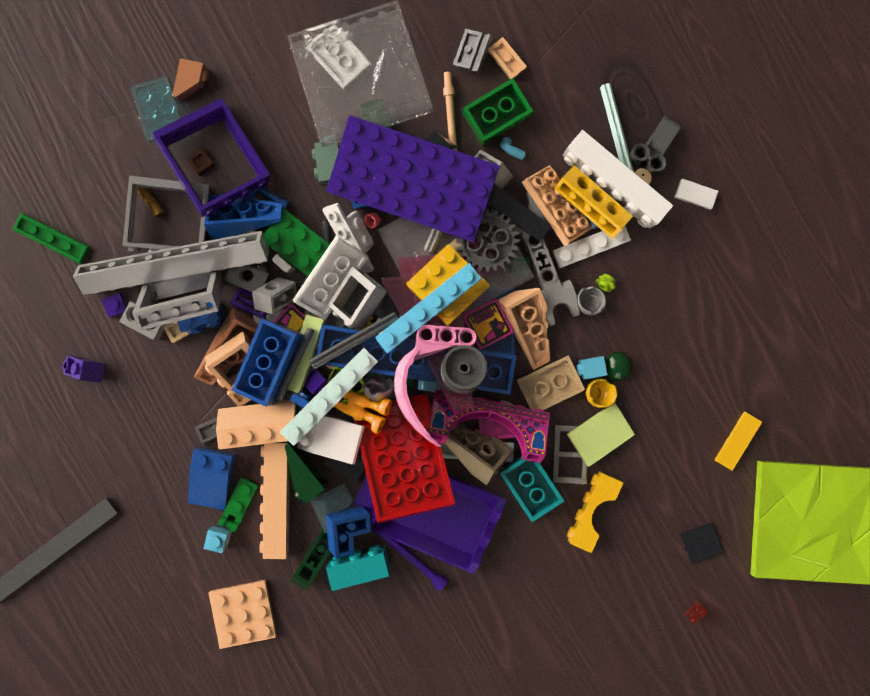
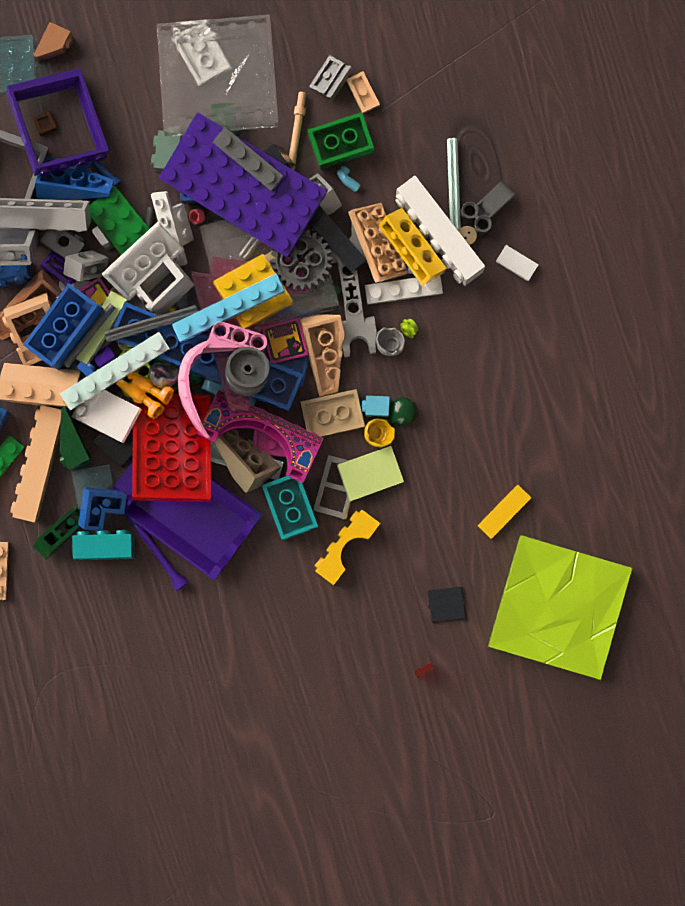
camera: 10 degrees right, 5 degrees down
(412, 151) = (248, 159): none -> dark grey plate

